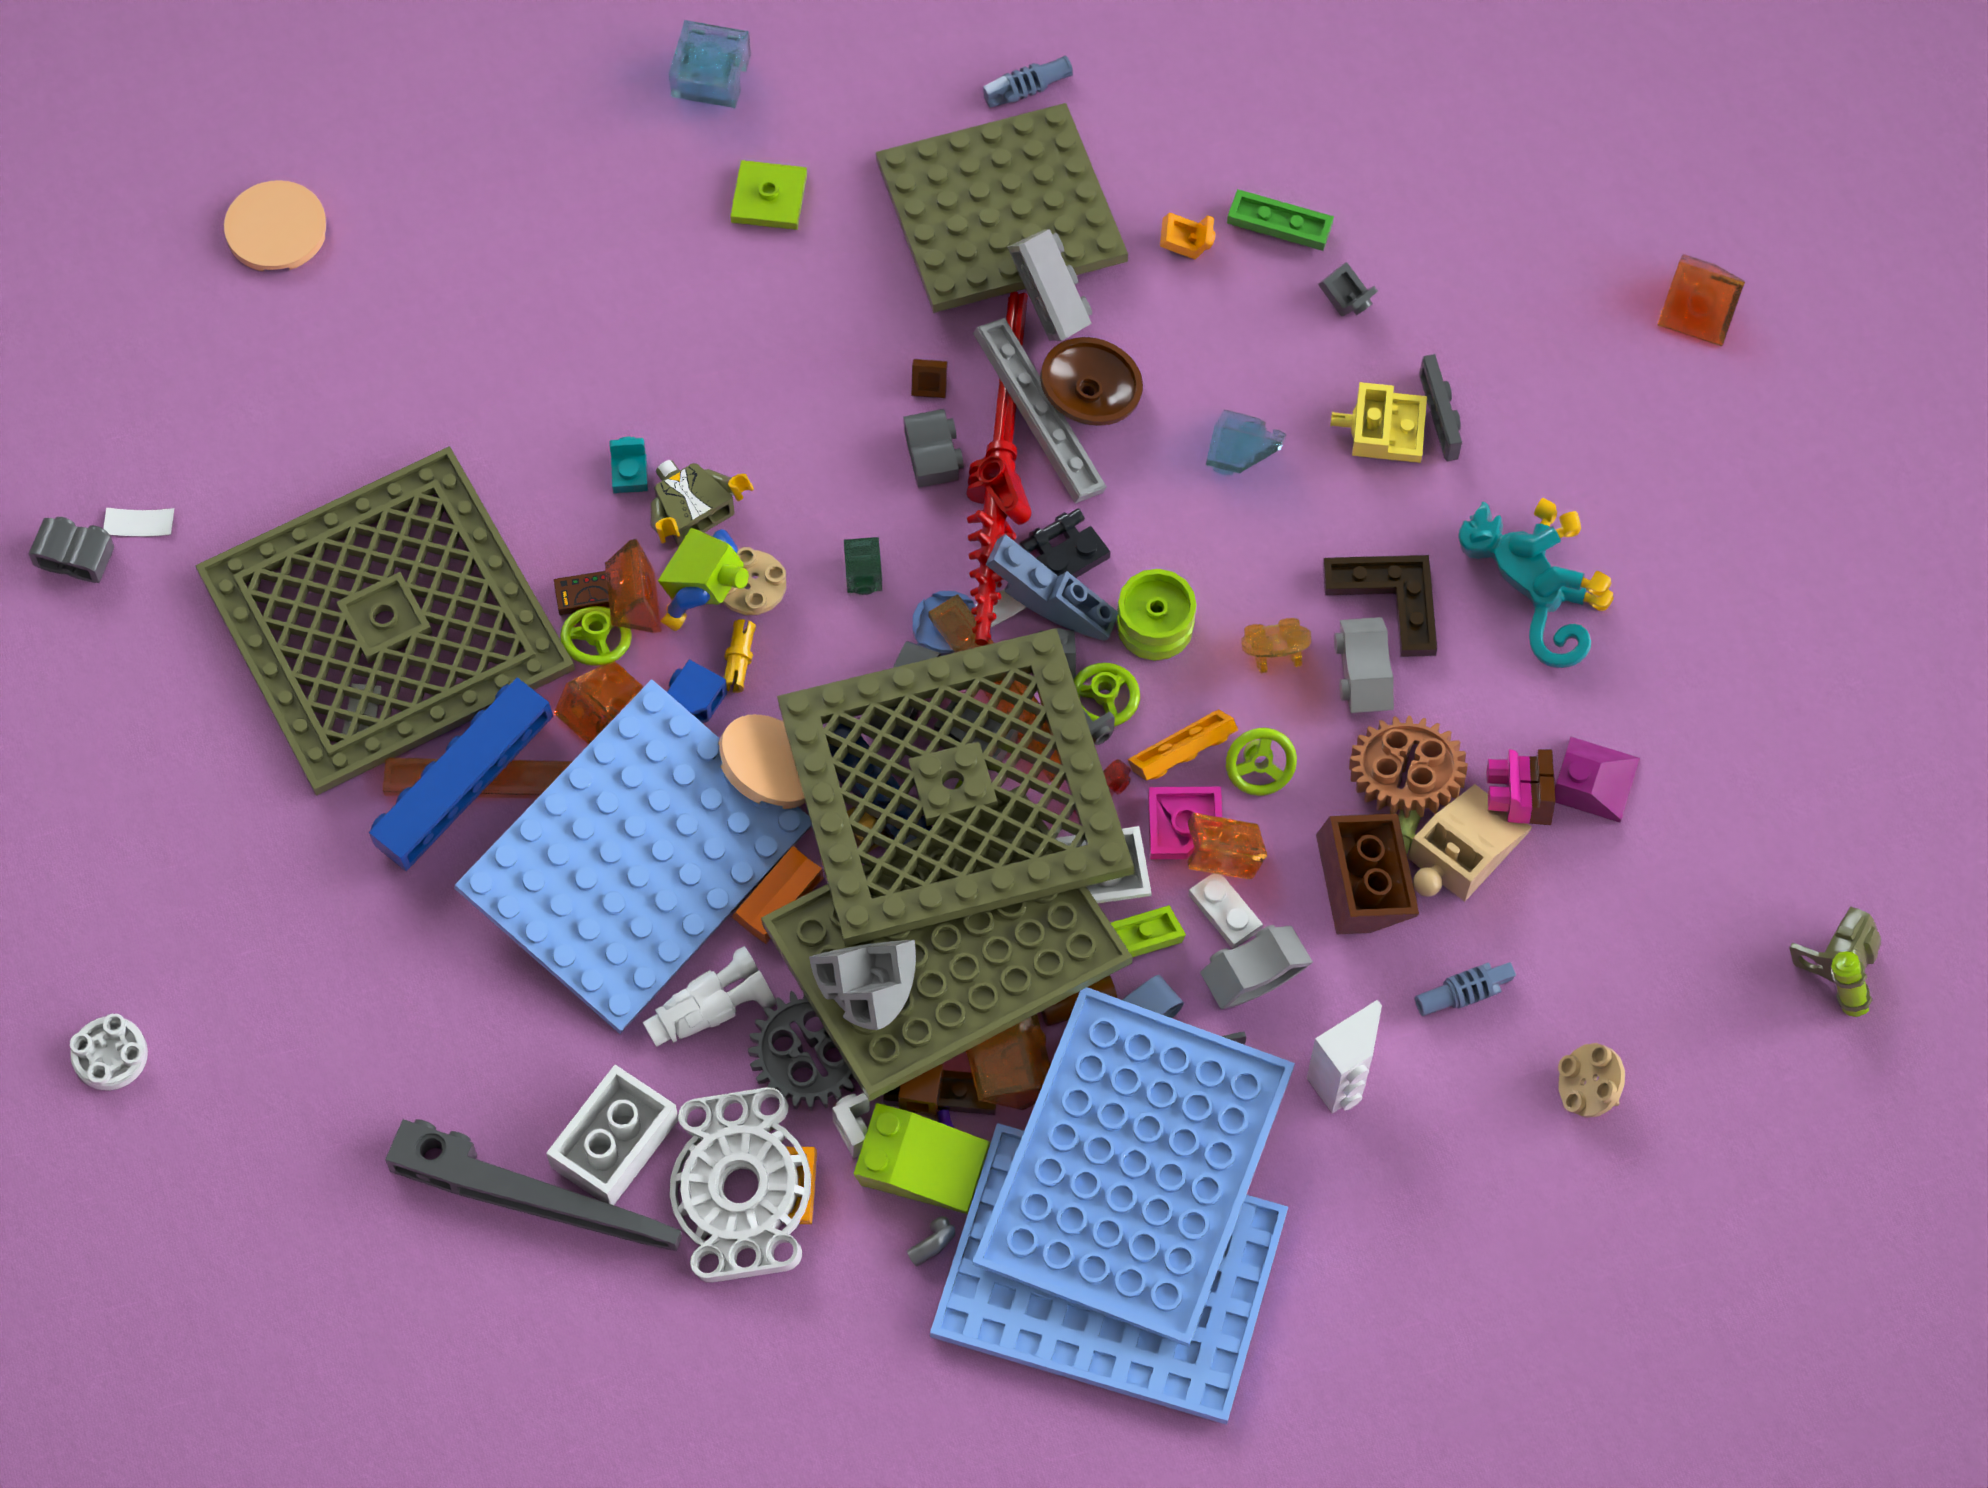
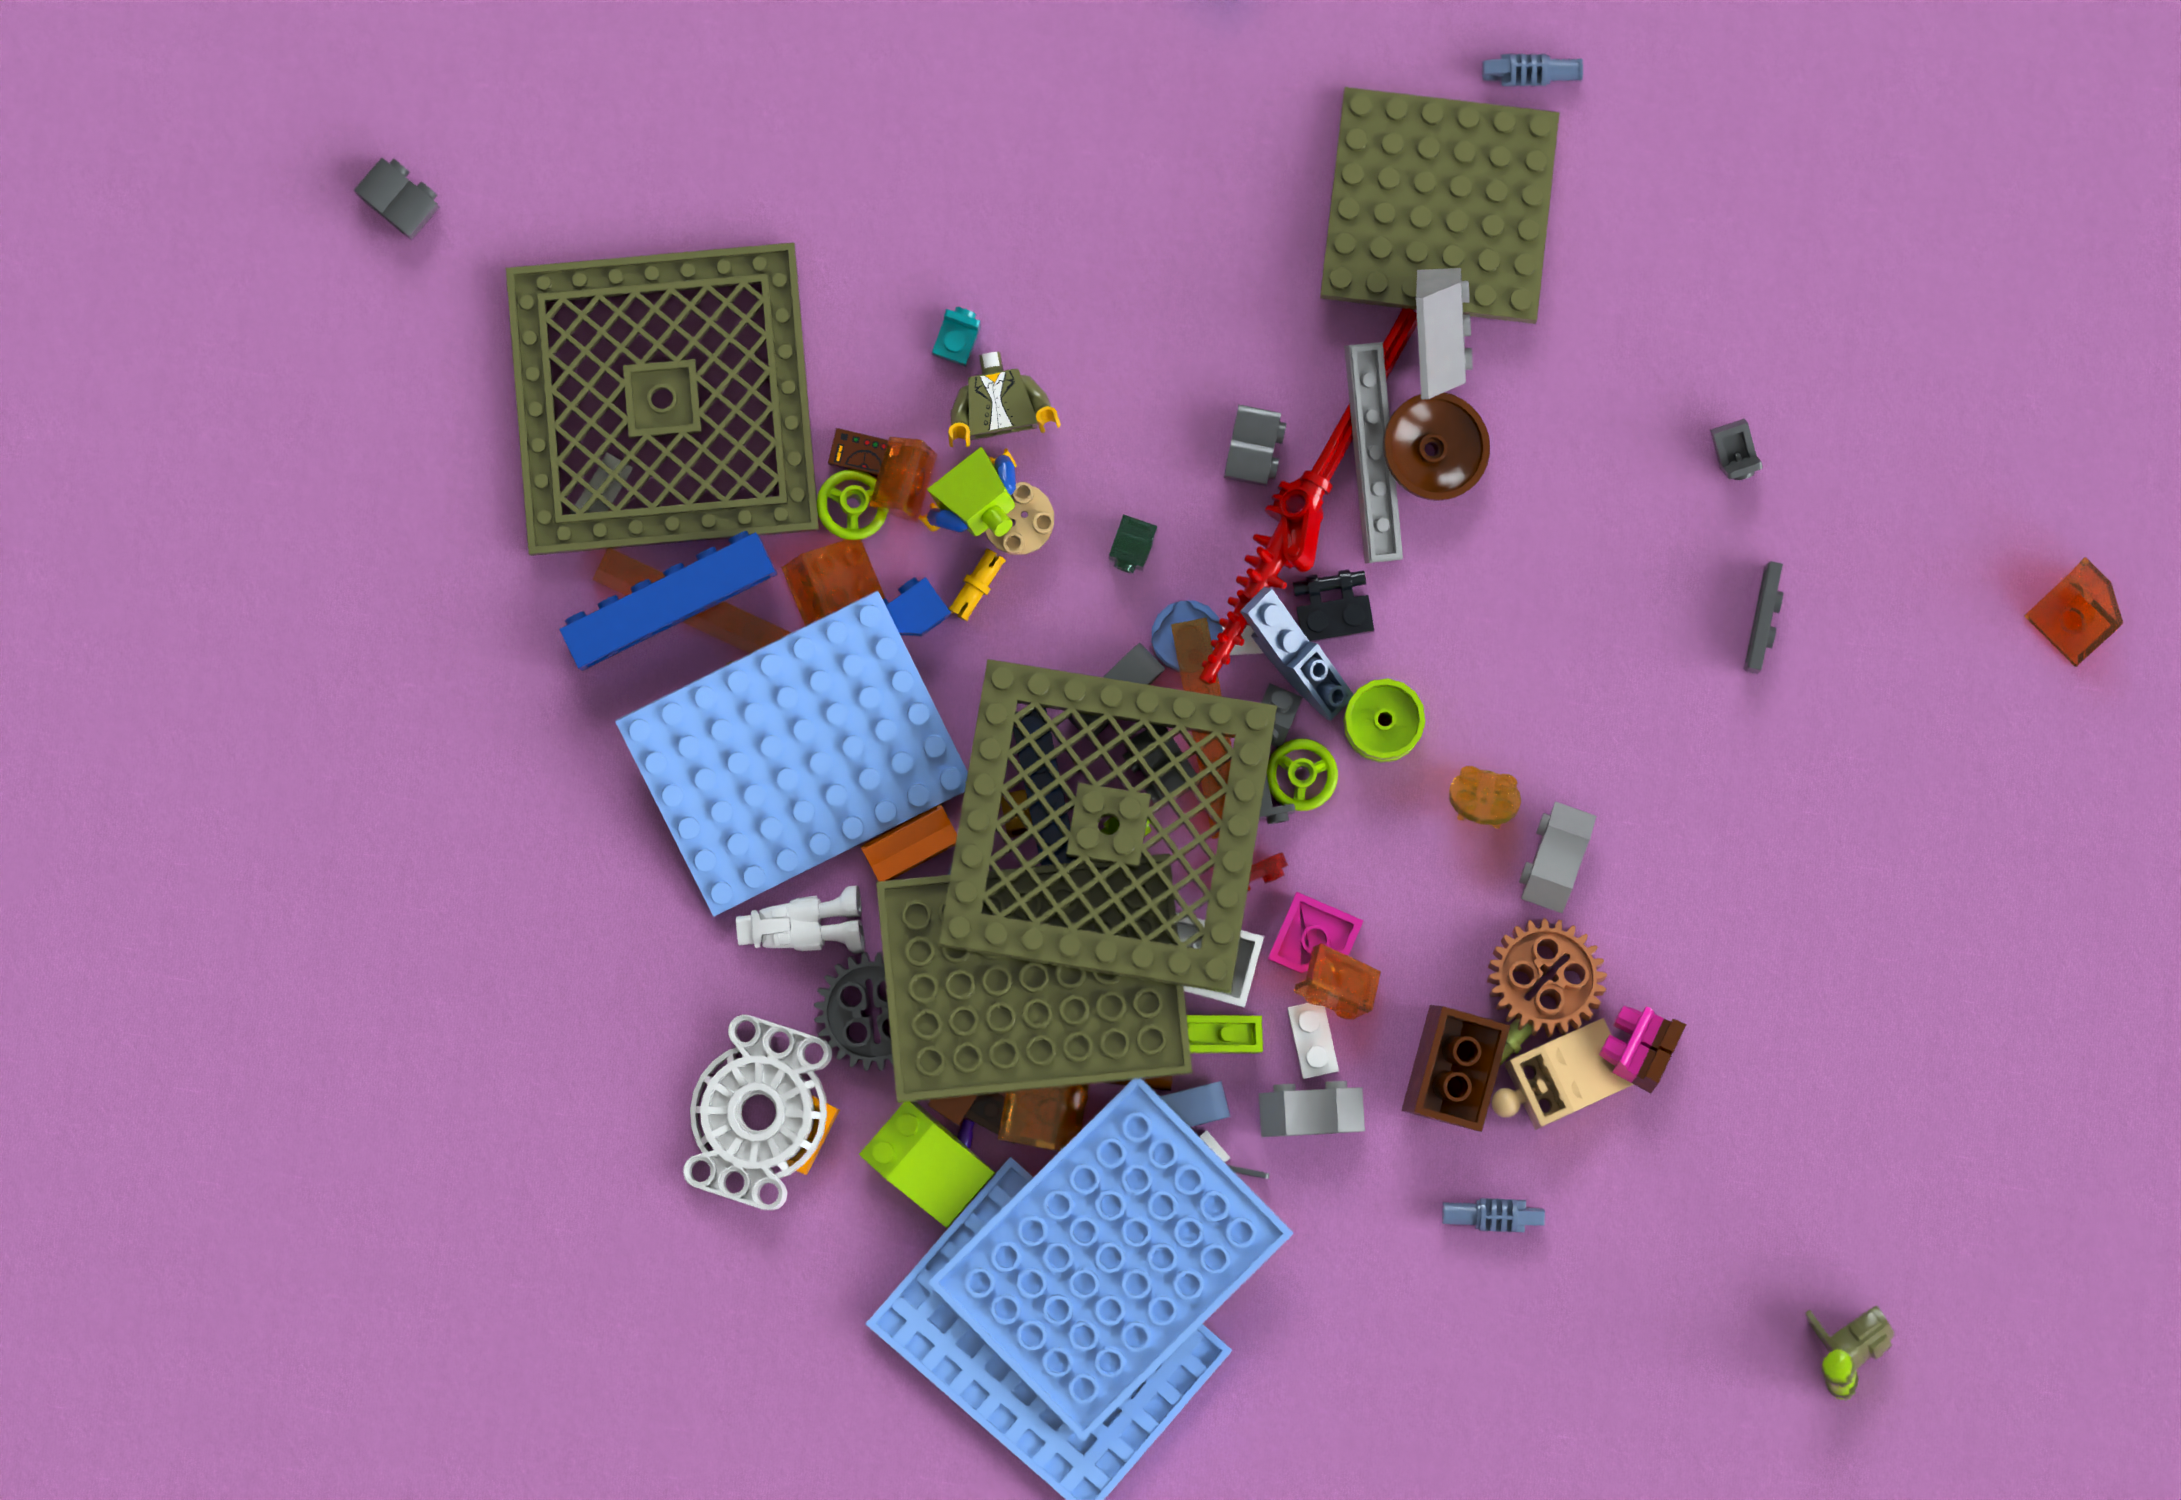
camera: 25 degrees right, 20 degrees up
(108, 1052) = (250, 732): white tile -> none
(138, 522) = (471, 189): white sticker -> none
(464, 1175) = (515, 991): dark grey piece -> none
(612, 1136) = (663, 1019): white brick -> none
(760, 761) = (945, 712): light nougat tile -> none
(769, 195) = (1219, 88): lime plate -> none
(851, 1129) = (880, 1105): white bracket -> none
(867, 980) = (942, 994): light grey brick -> none
(929, 378) = (1284, 367): reddish brown tile -> none
(933, 1244) = (905, 1243): flat silver arm -> none
(1183, 745) = (1348, 861): light orange plate -> none
(1187, 236) = (1608, 318): light orange bracket -> none
(1241, 443) = (1554, 572): clear light blue slope -> none
(1252, 752) = (1411, 909): lime piece -> none
(1280, 219) = (1709, 340): bright green plate -> none
(1343, 1059) = (1345, 1248): white slope -> none
(1385, 423) = (1702, 611): light yellow plate -> none
(1399, 575) = (1638, 777): dark brown plate -> none
(1526, 568) = (1757, 826): teal animal -> none
(1586, 1065) = (1555, 1372): tan plate -> none
(1595, 779) = (1718, 1061): magenta slope -> none

